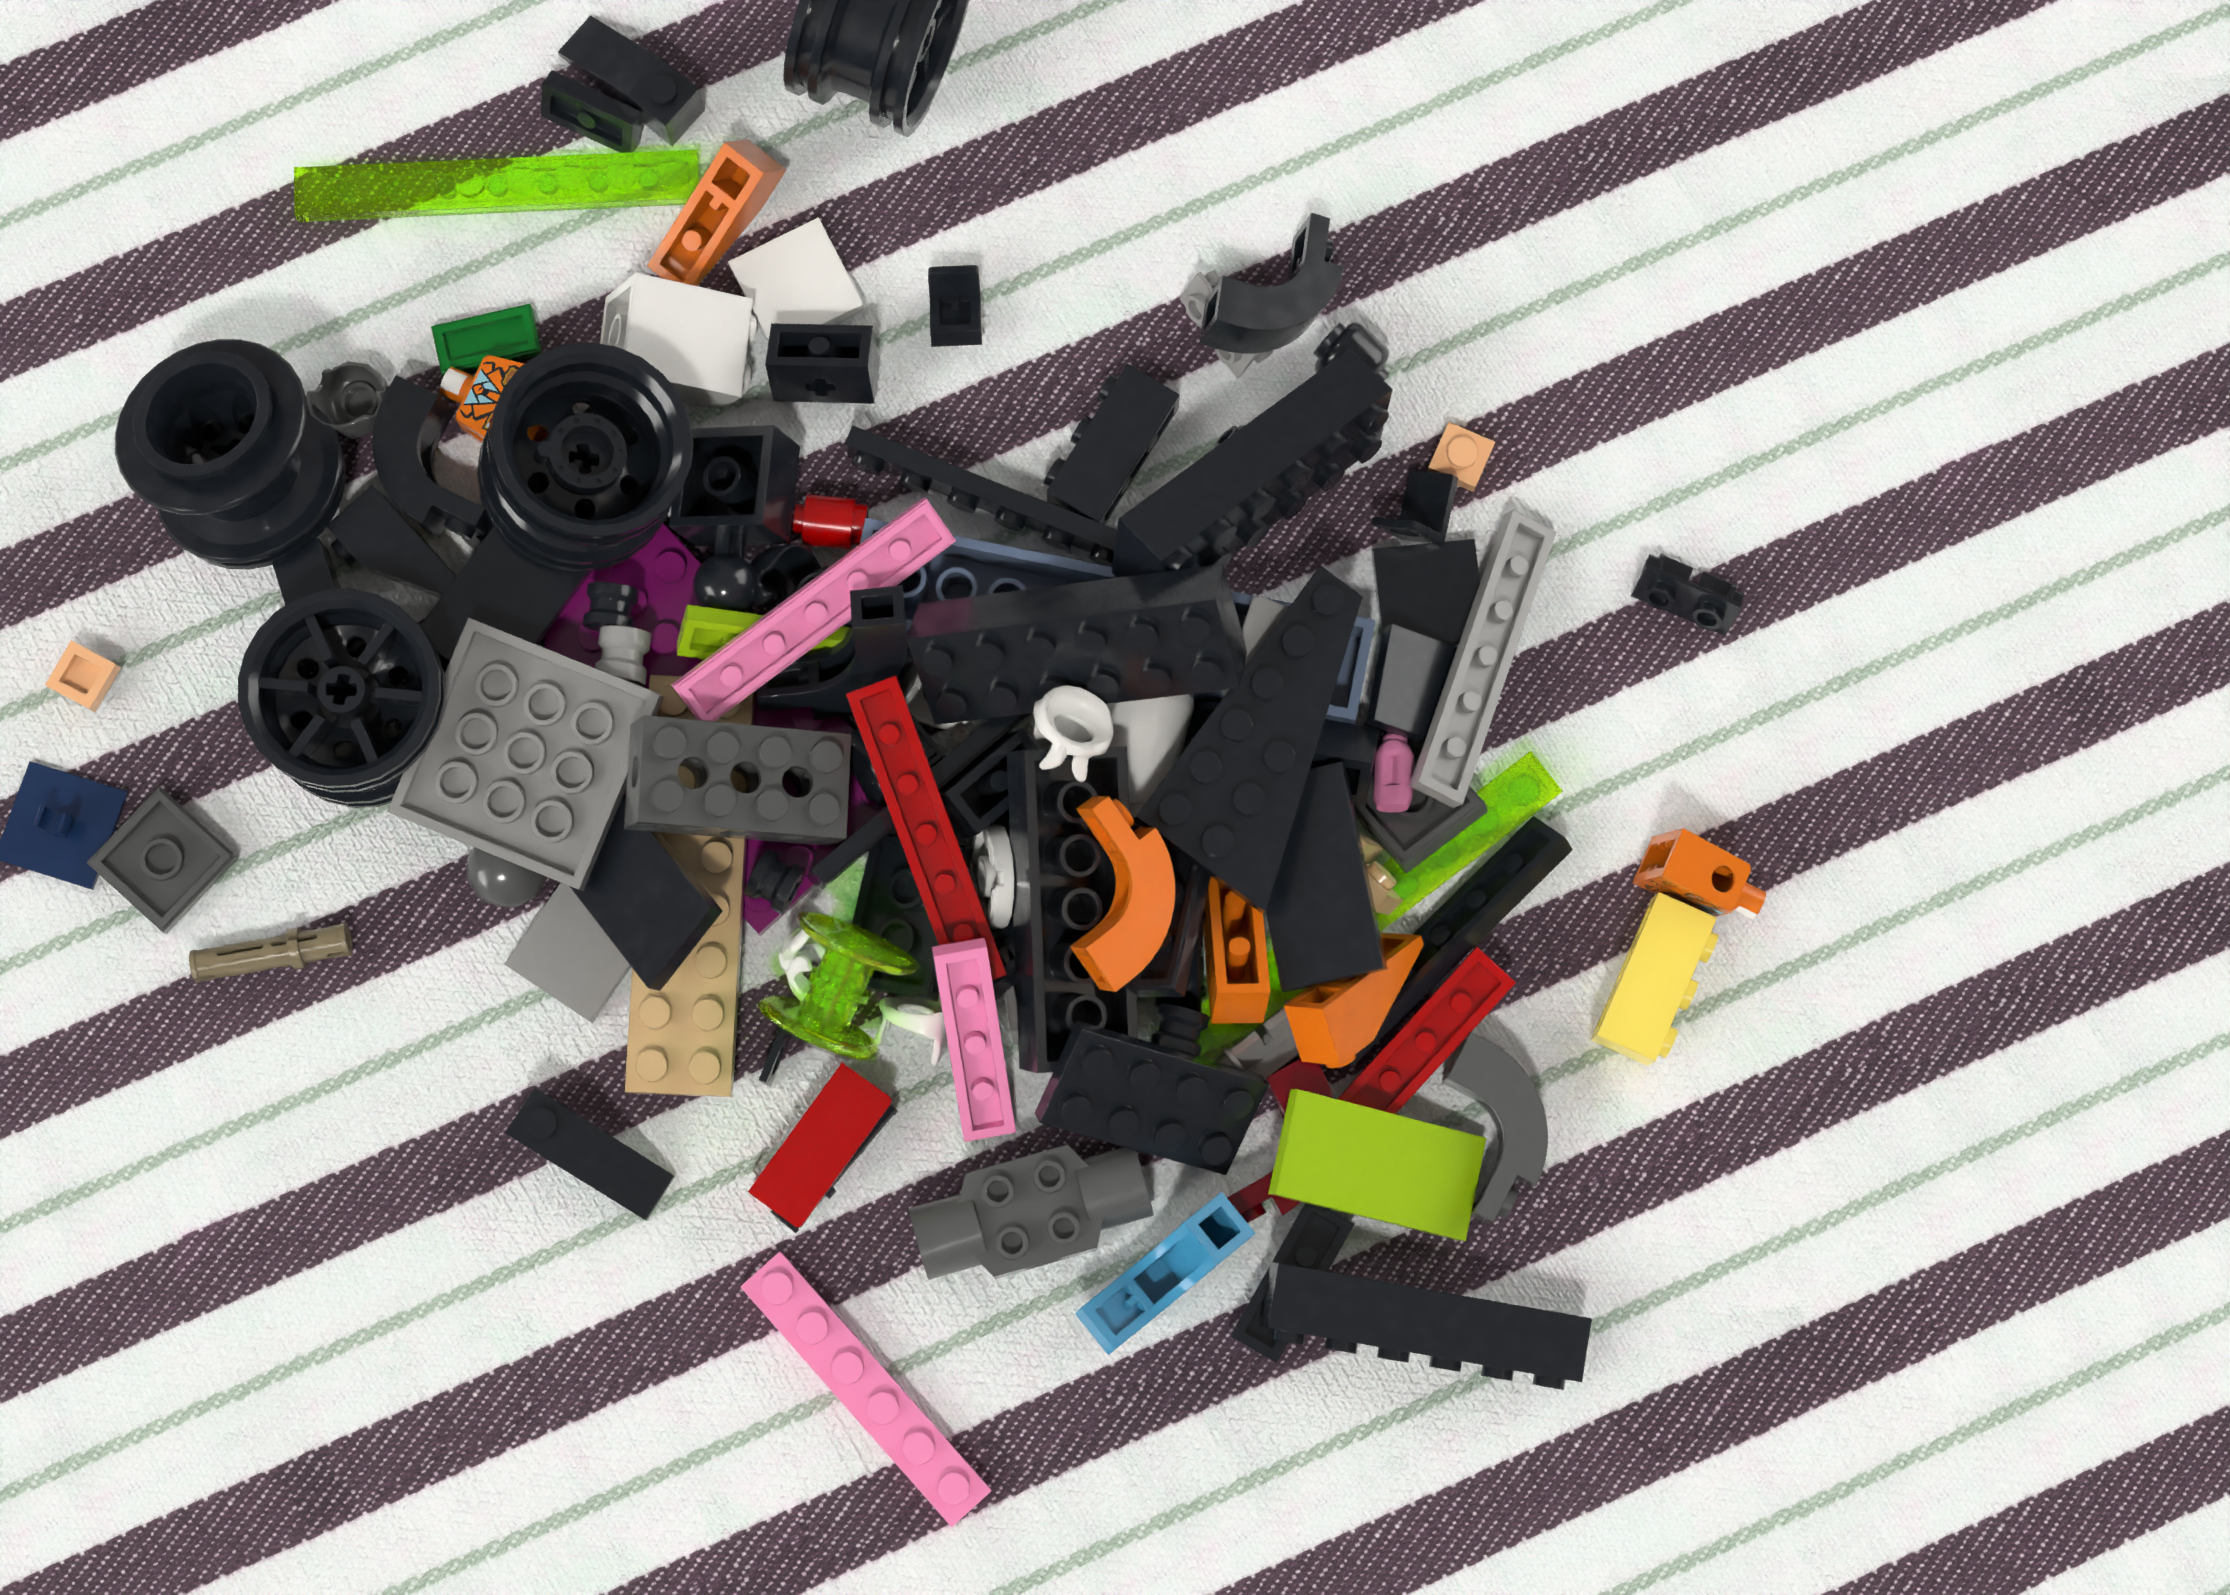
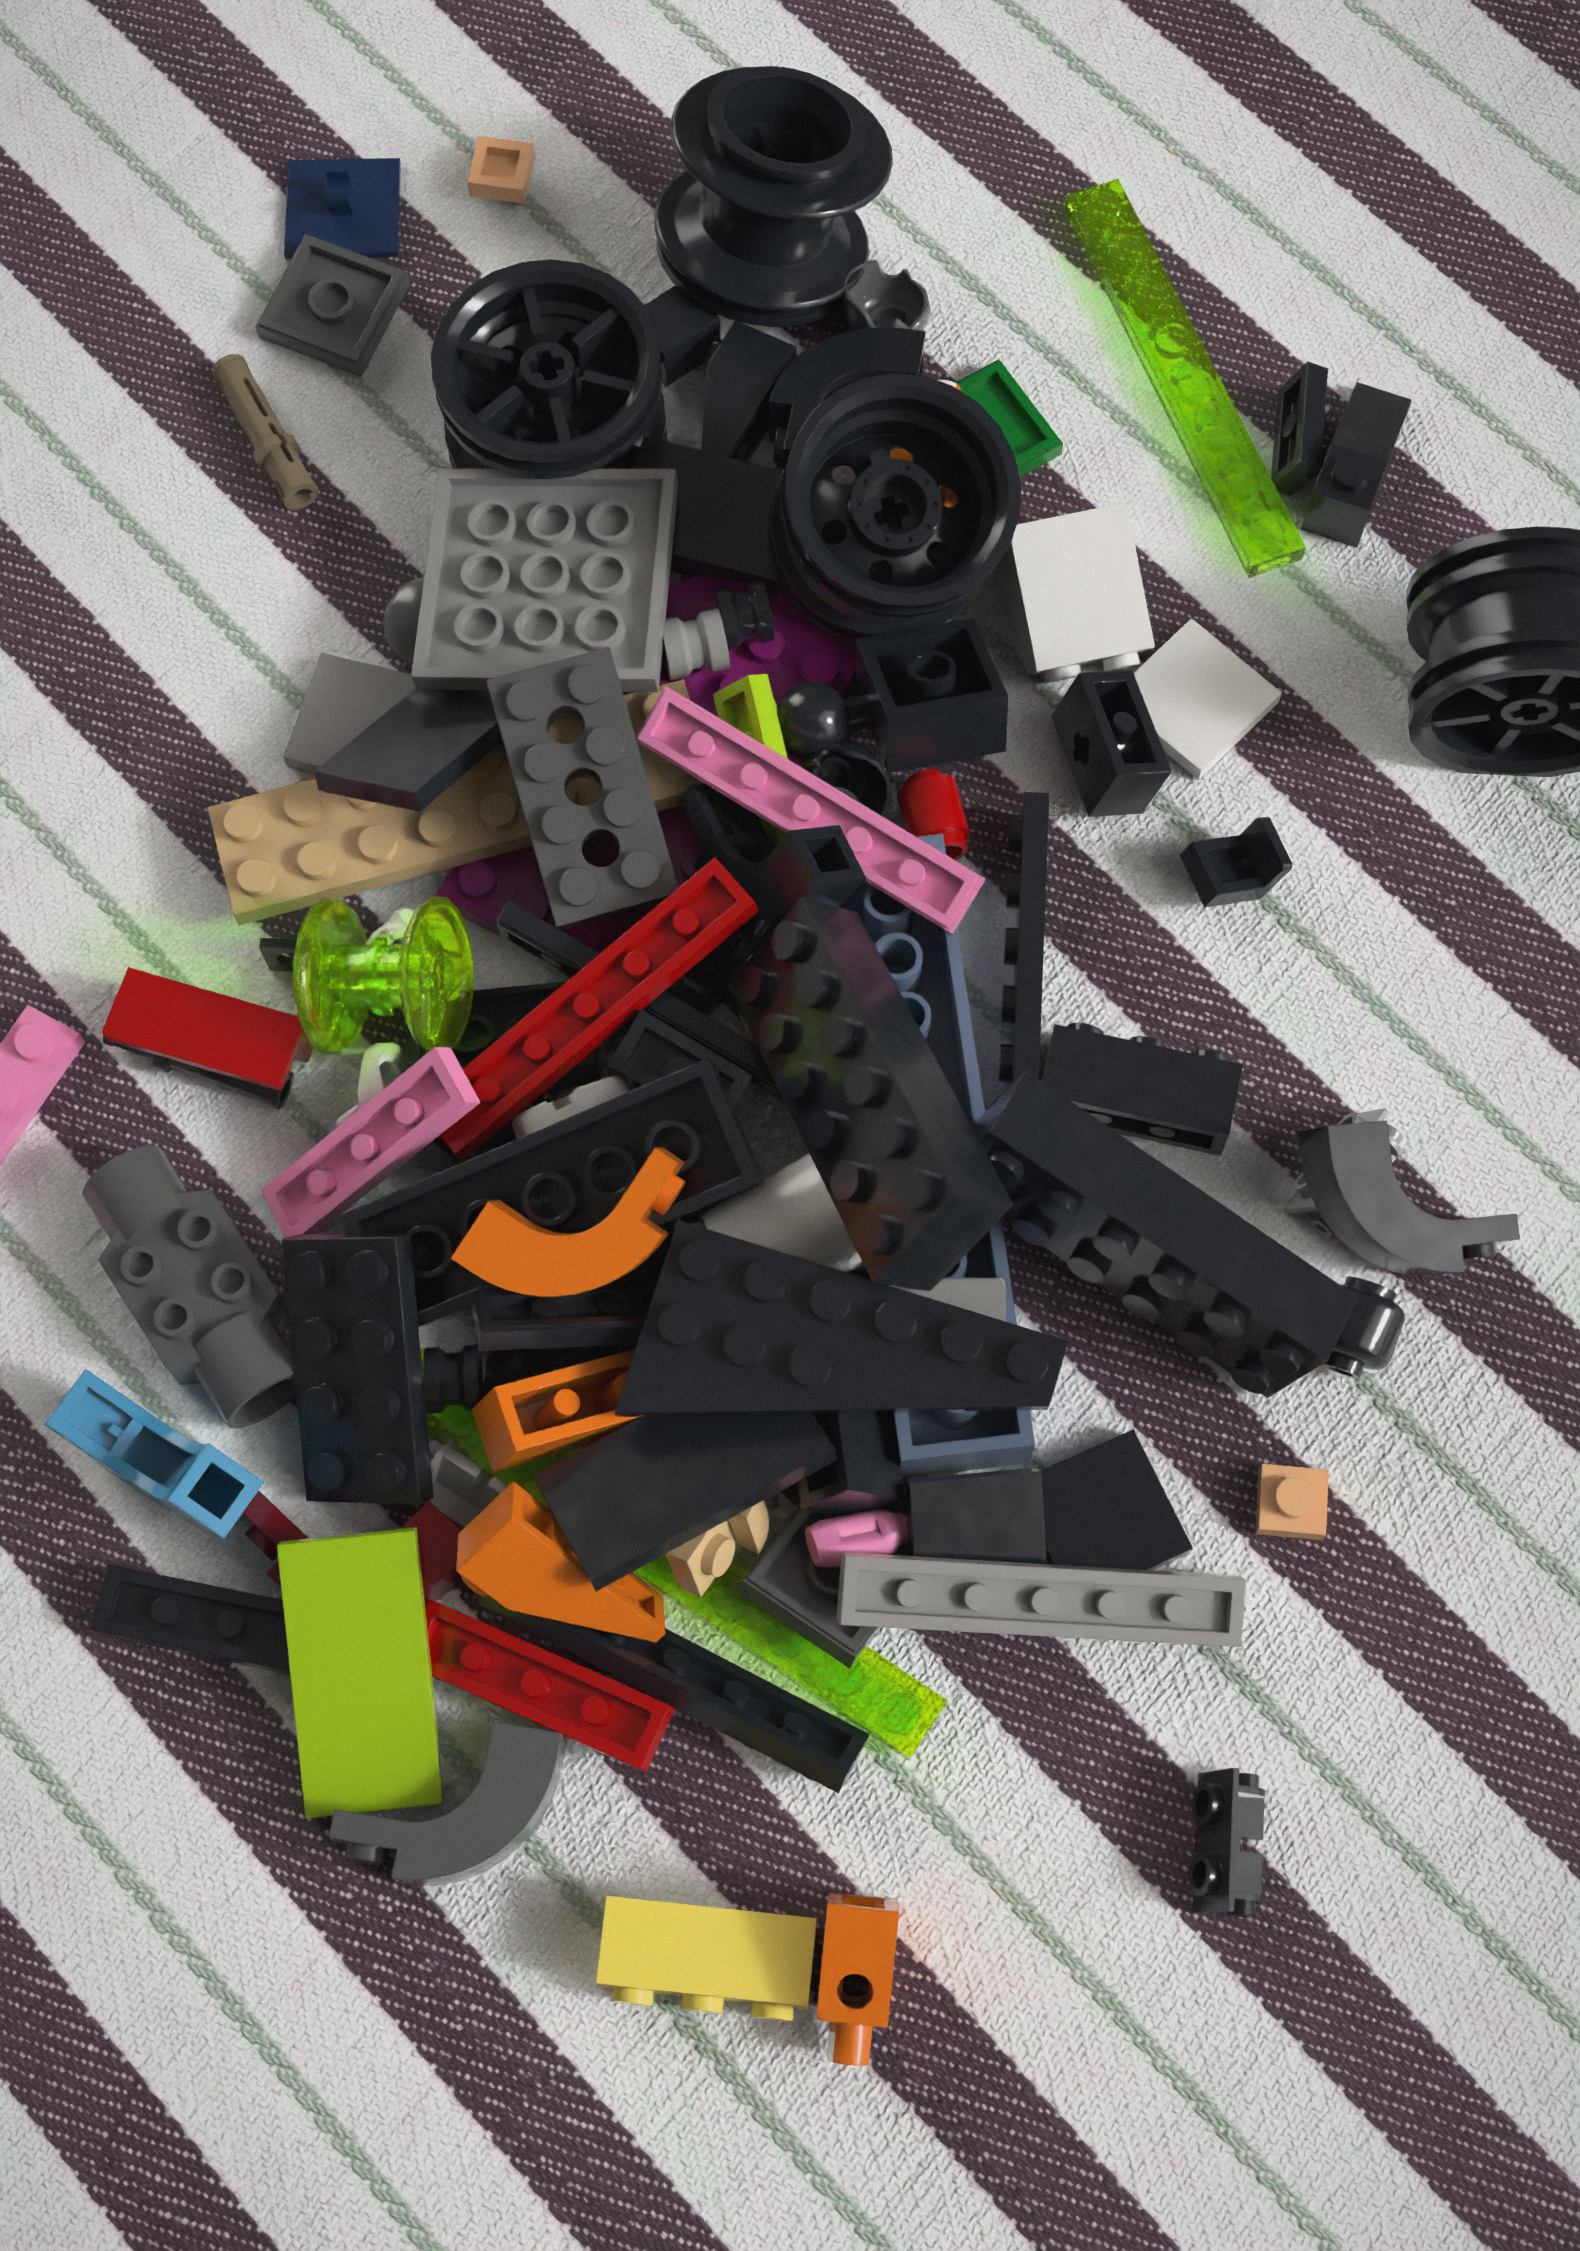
camera: 75 degrees right, 10 degrees down
(590, 1154) = (135, 799): black slope -> none
(717, 212) = (1245, 587): orange slope -> none
(775, 881) = (490, 879): black wheel -> none
(1067, 720) = (774, 1112): white piece -> none
(1424, 508) = (1206, 1475): black bracket -> none
(1425, 1323) = (180, 1797): black brick -> none

